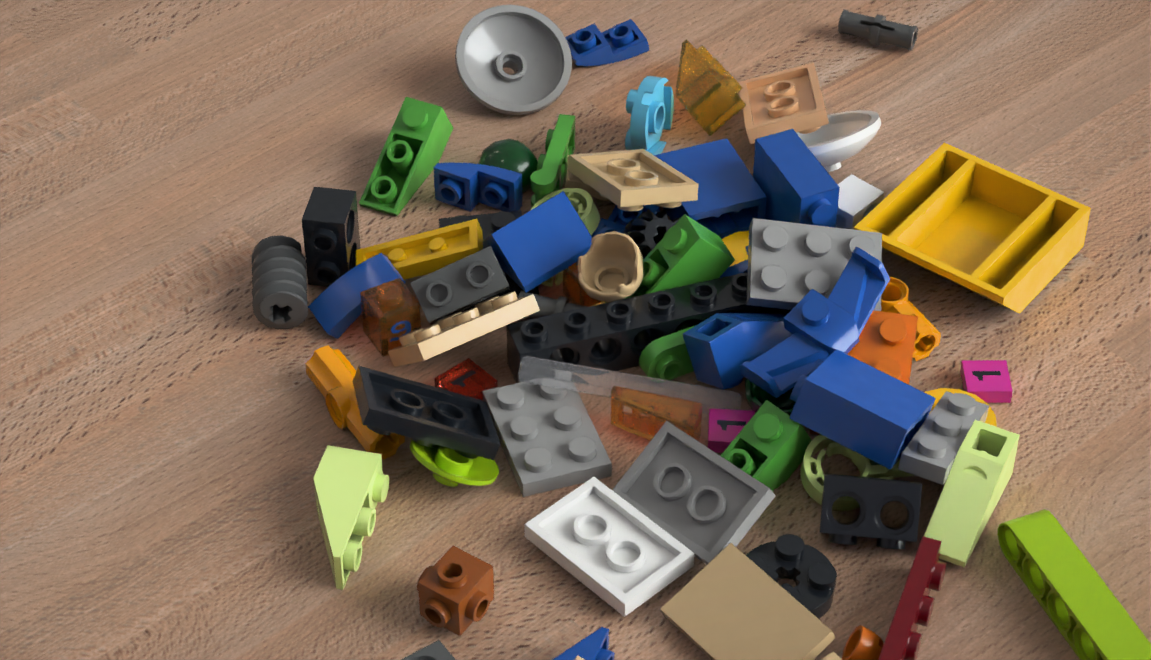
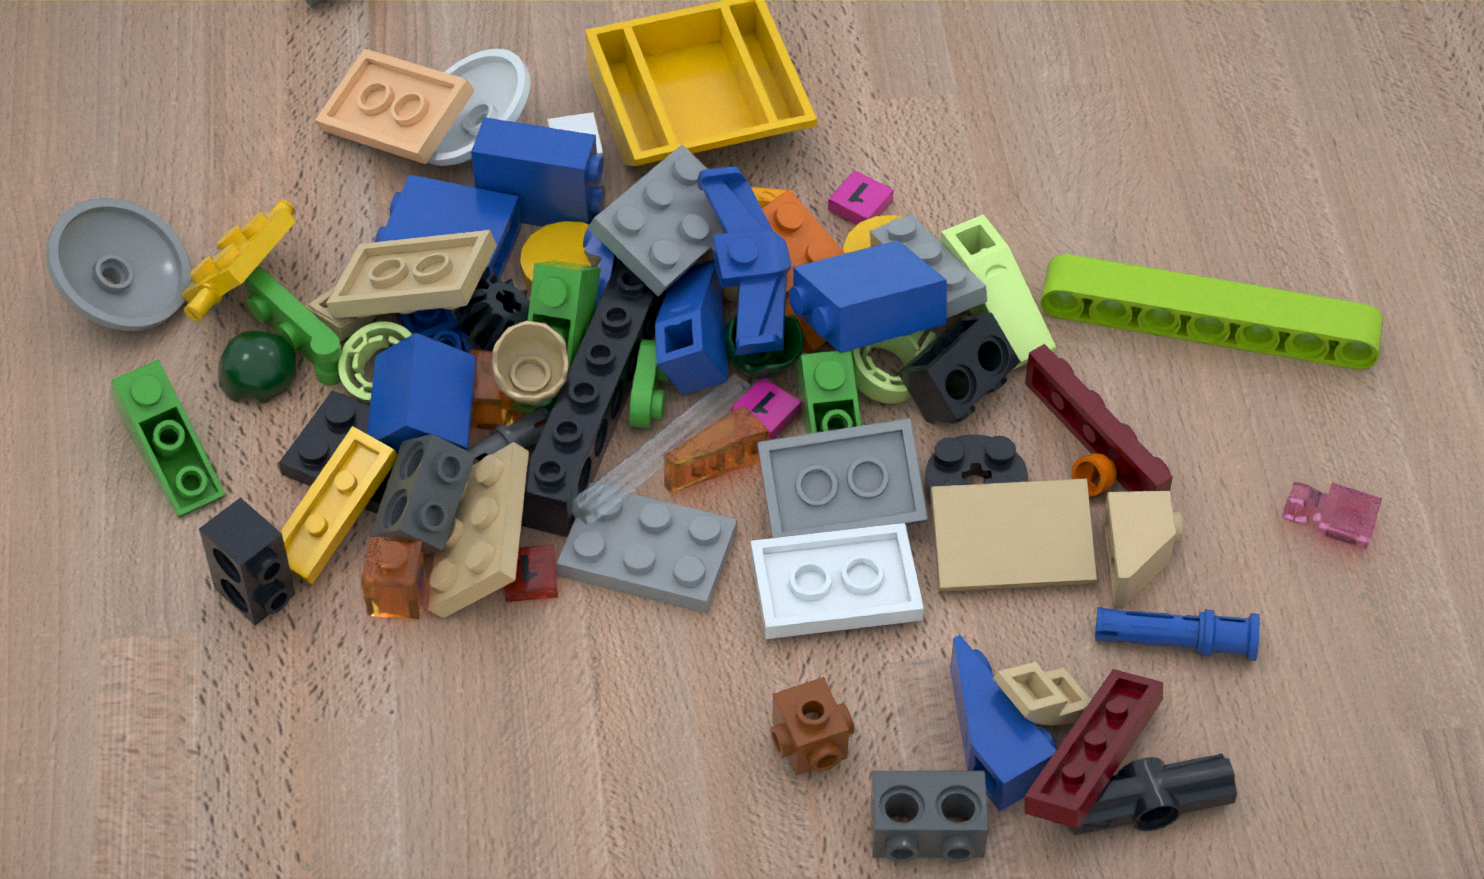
camera: 55 degrees left, 10 degrees up
(279, 282) = (256, 646): dark grey piece -> none
(334, 378) = (480, 674): light orange piece -> none
(341, 302) = (336, 589): blue slope -> none
(346, 497) = (615, 758): yellowish green slope -> none
(425, 414) = (573, 621): black plate -> none
(452, 468) = (635, 635): lime dish -> none
(470, 184) = (253, 411): blue slope -> none
(592, 102) = (239, 255): none -> yellow plate
(616, 44) = (150, 175): blue slope -> none
(650, 113) = (319, 216): medium azure plate -> none
(706, 88) = (322, 151): clear yellow slope -> none

